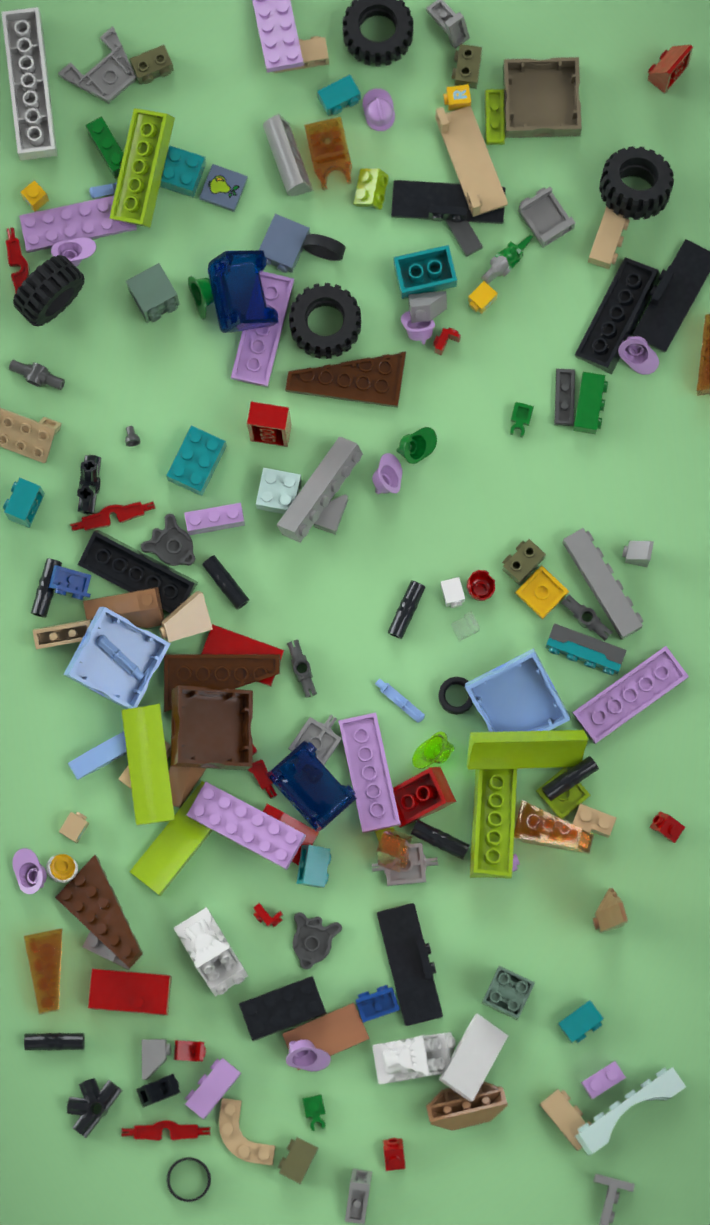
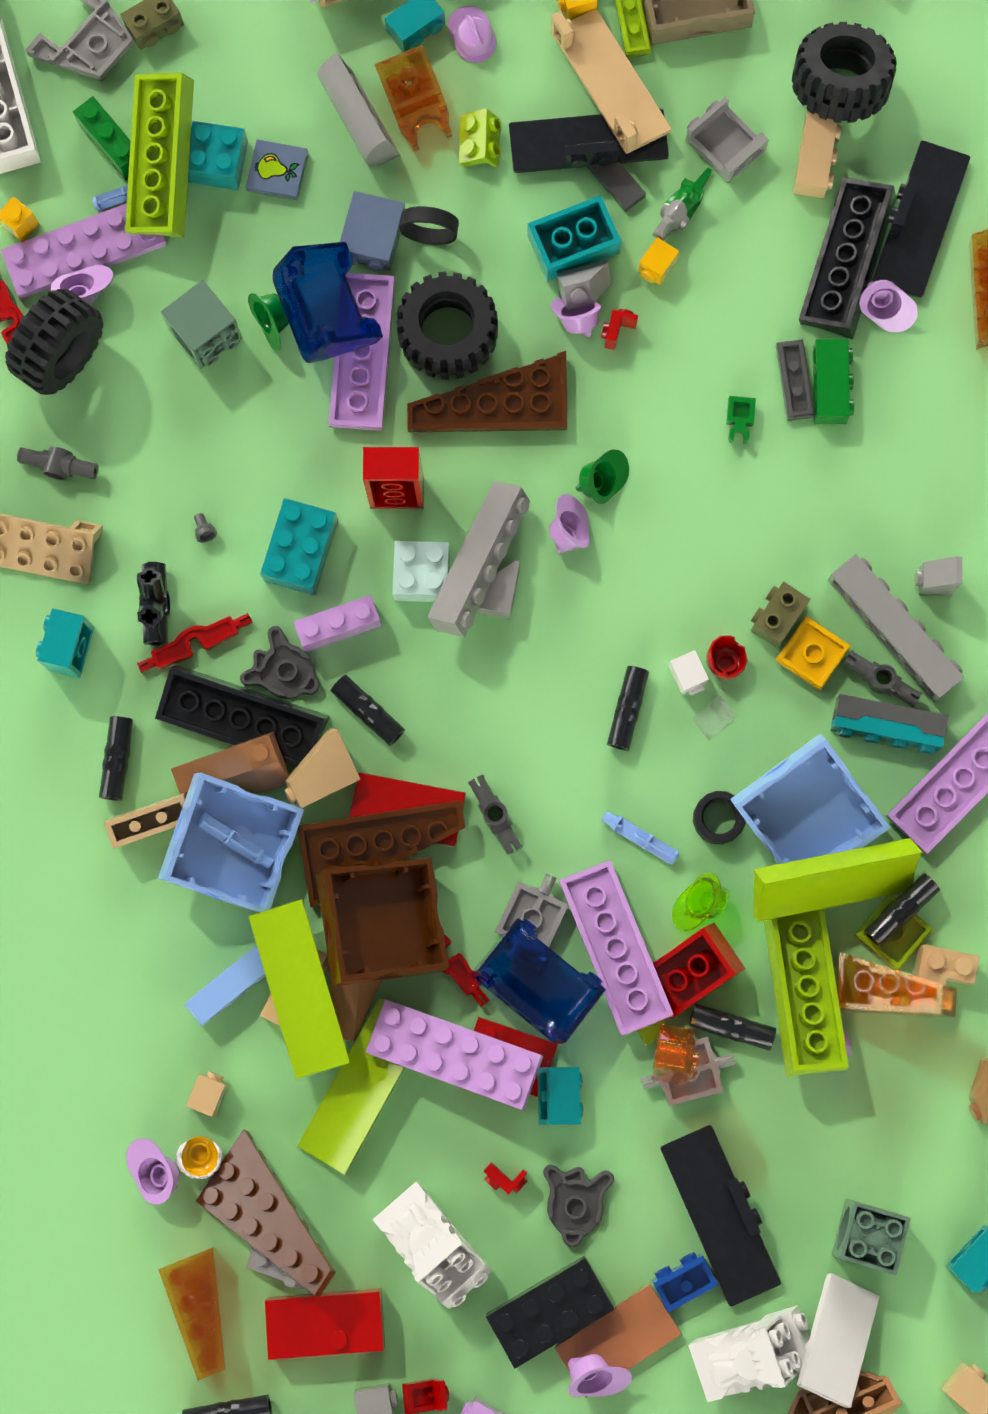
camera: 10 degrees left, 0 degrees up
(70, 581) = (148, 743): blue bracket -> none

